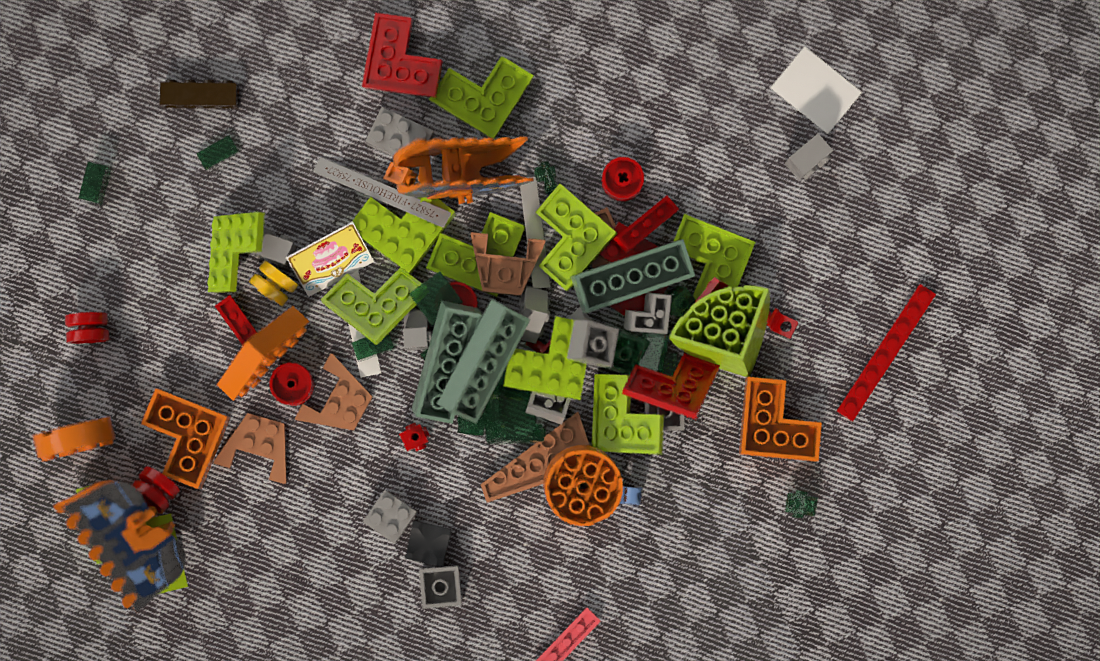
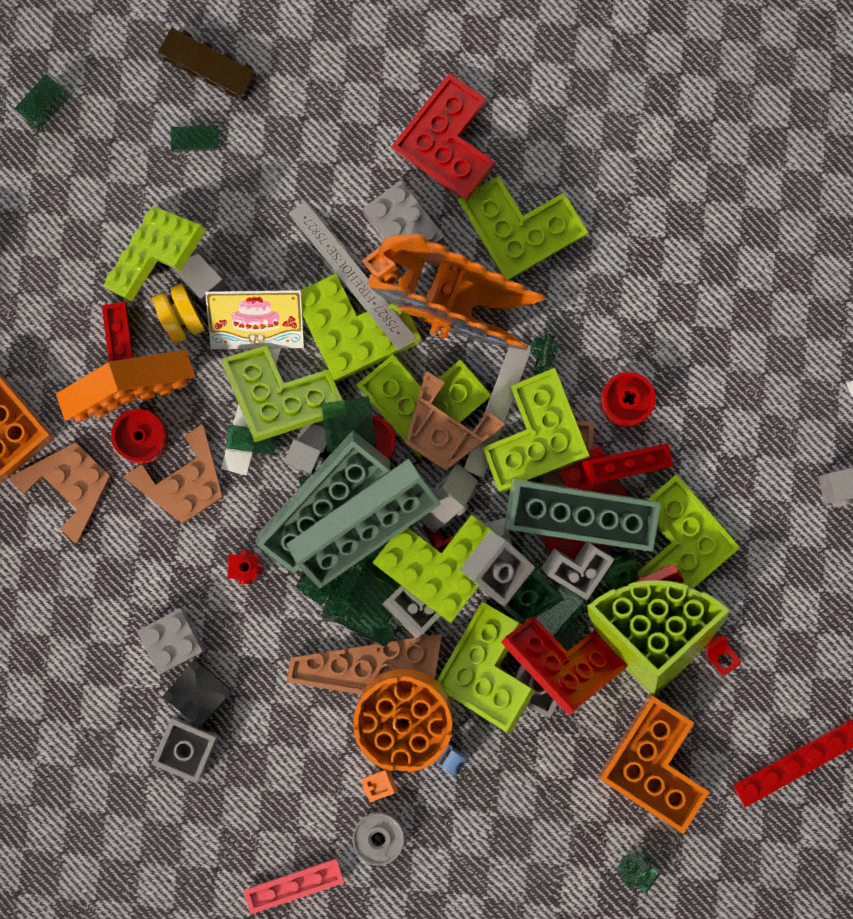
camera: 30 degrees right, 0 degrees up
(589, 539) = (379, 785): none -> orange bracket
(620, 581) = (367, 849): none -> light grey wheel

